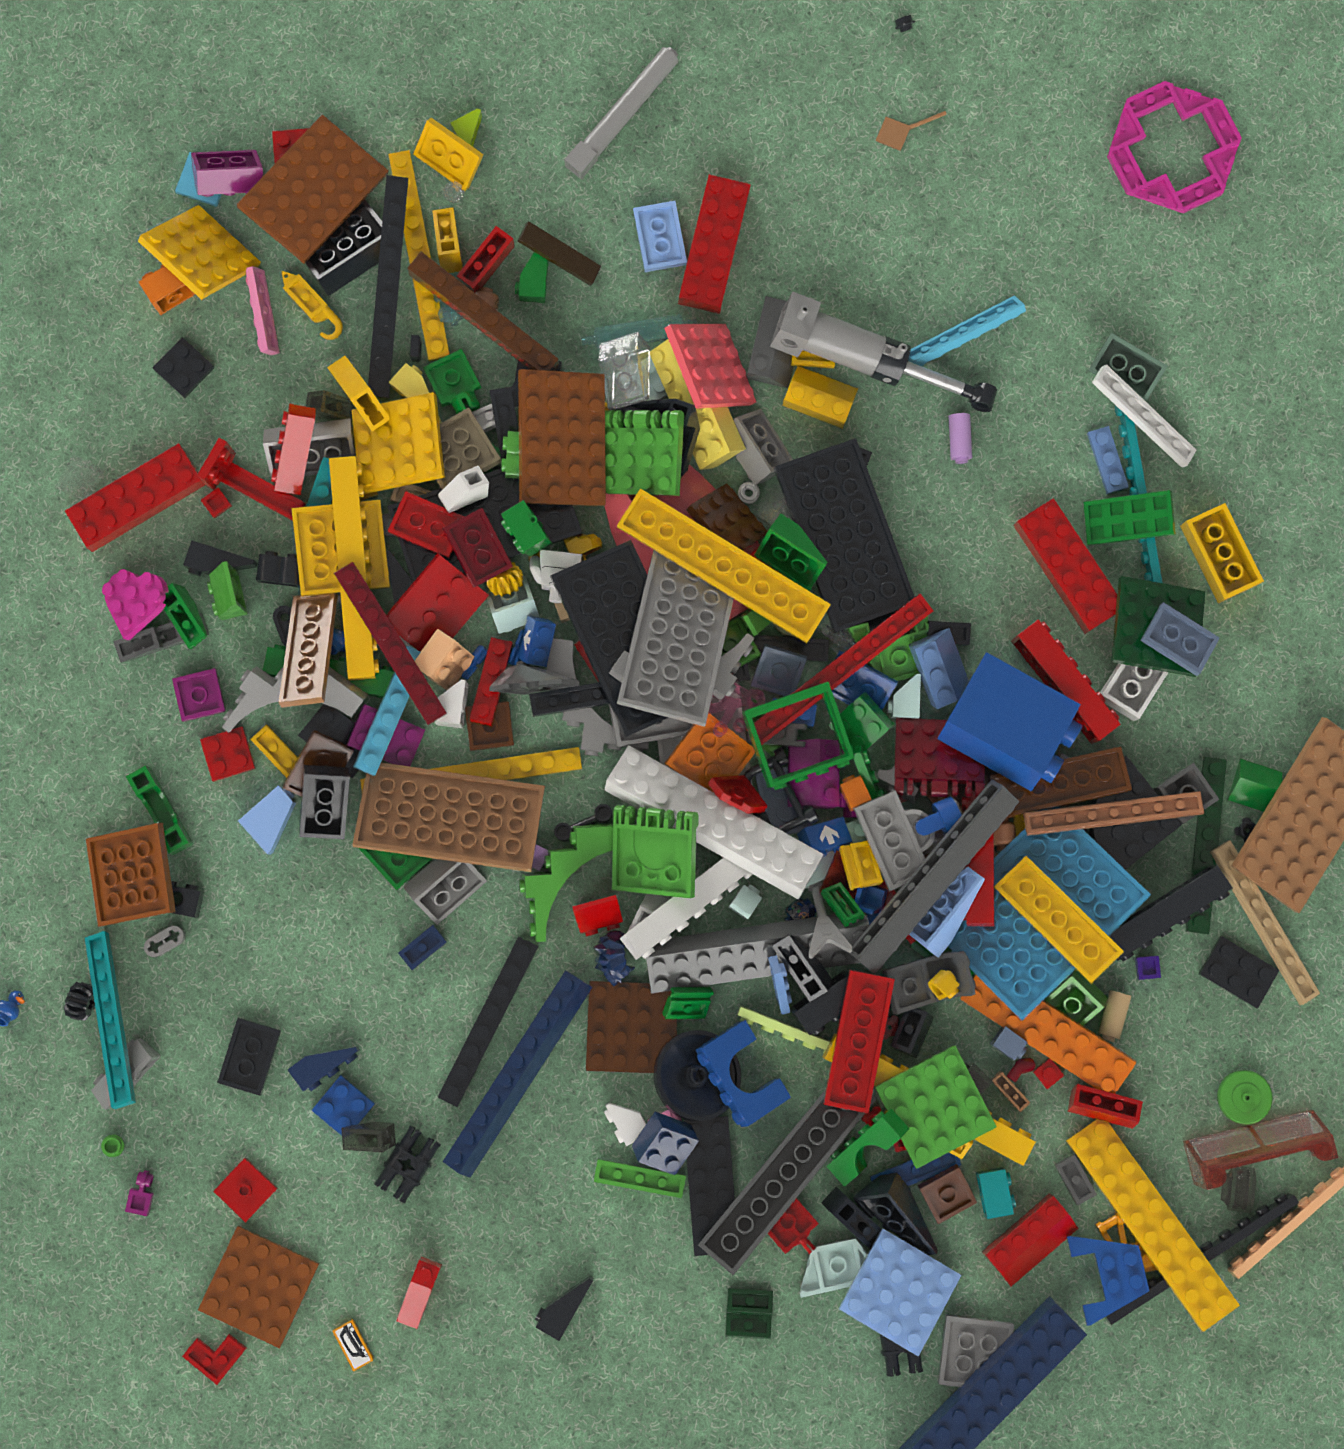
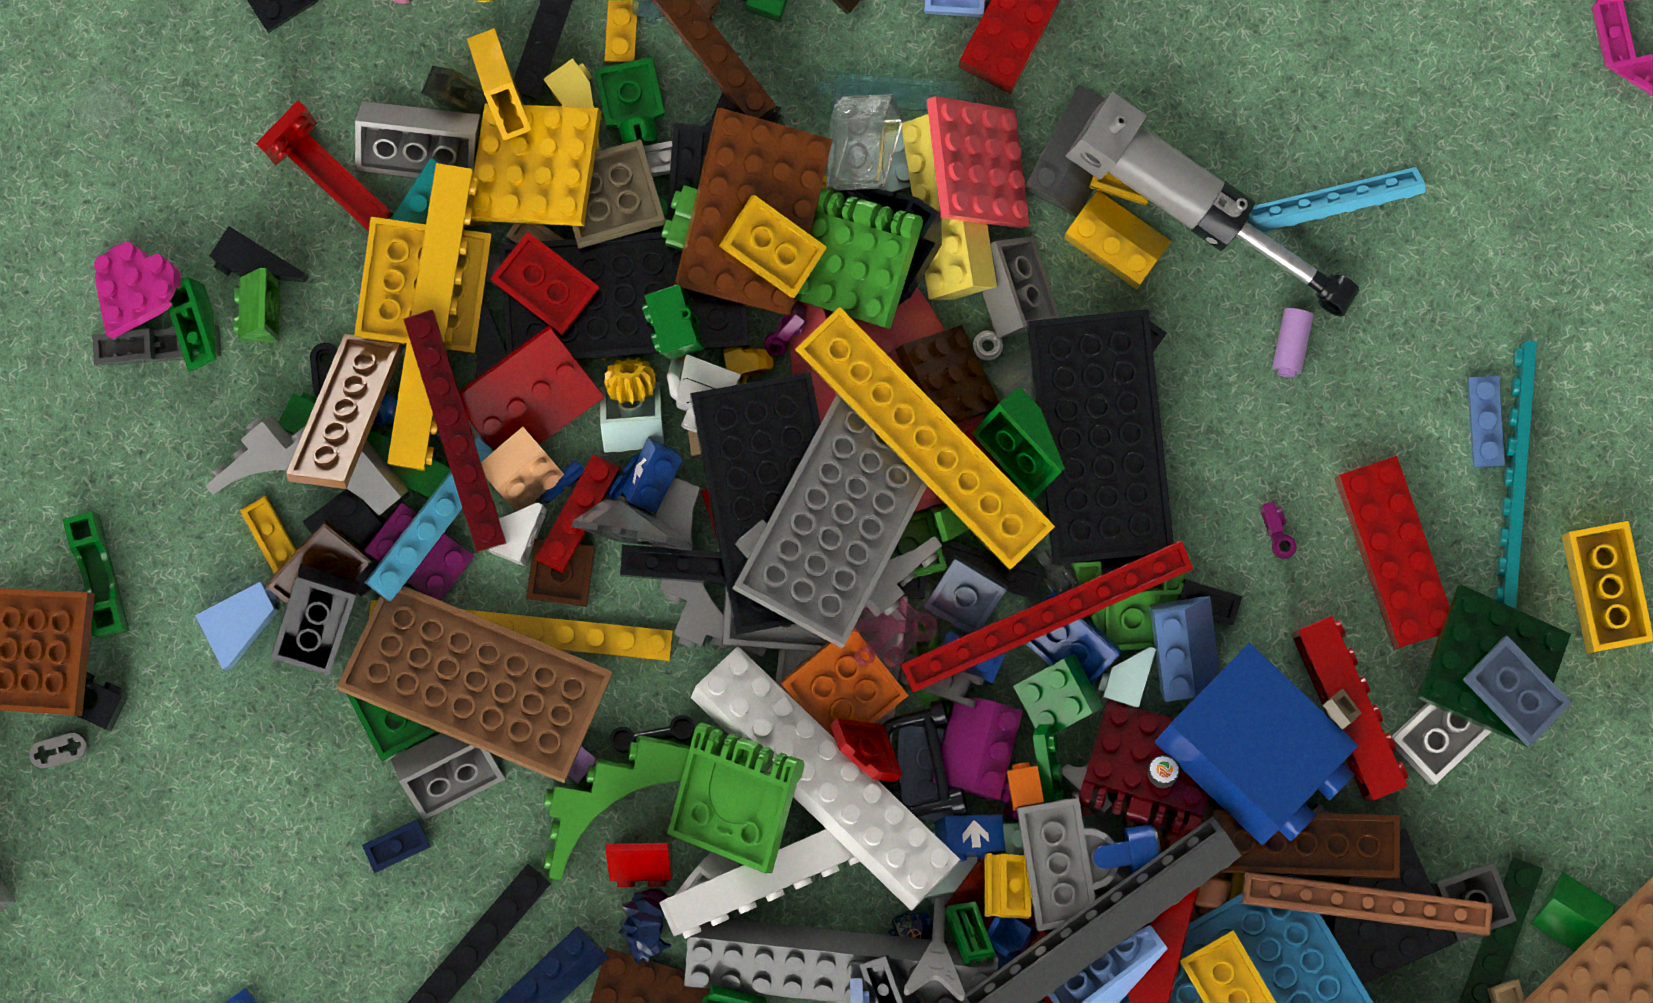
camera: 25 degrees right, 0 degrees up
(134, 498) = (168, 150): red brick -> none
(199, 695) = (186, 434): magenta plate -> none
(216, 503) = (274, 183): red plate -> none
(227, 754) = (205, 522): red plate -> none
(249, 1056) = (131, 932): black plate -> none
(278, 569) = (333, 293): black brick -> none
(294, 449) = (394, 139): brick -> none
(315, 1067) = (215, 968): dark blue slope -> none
(415, 349) = (591, 41): black tile -> none
(465, 489) = (606, 249): white slope -> none
(477, 547) = (603, 331): dark red plate -> none
(582, 458) = (772, 246): none -> yellow plate
(605, 514) = (786, 328): none -> magenta plate
(745, 901) = (842, 894): light aqua slope -> none
(821, 767) = (985, 742): green window -> none
(949, 757) = (1163, 771): none -> tile
(979, 565) = (1273, 521): none -> magenta plate
(1062, 682) = (1341, 709): none -> dark tan plate
(1129, 518) = (1493, 508): green plate -> none
(1130, 364) = (1543, 304): sand green slope -> none
(1144, 416) = (1548, 375): white plate -> none
(1246, 824) = (1537, 970): black plate -> none

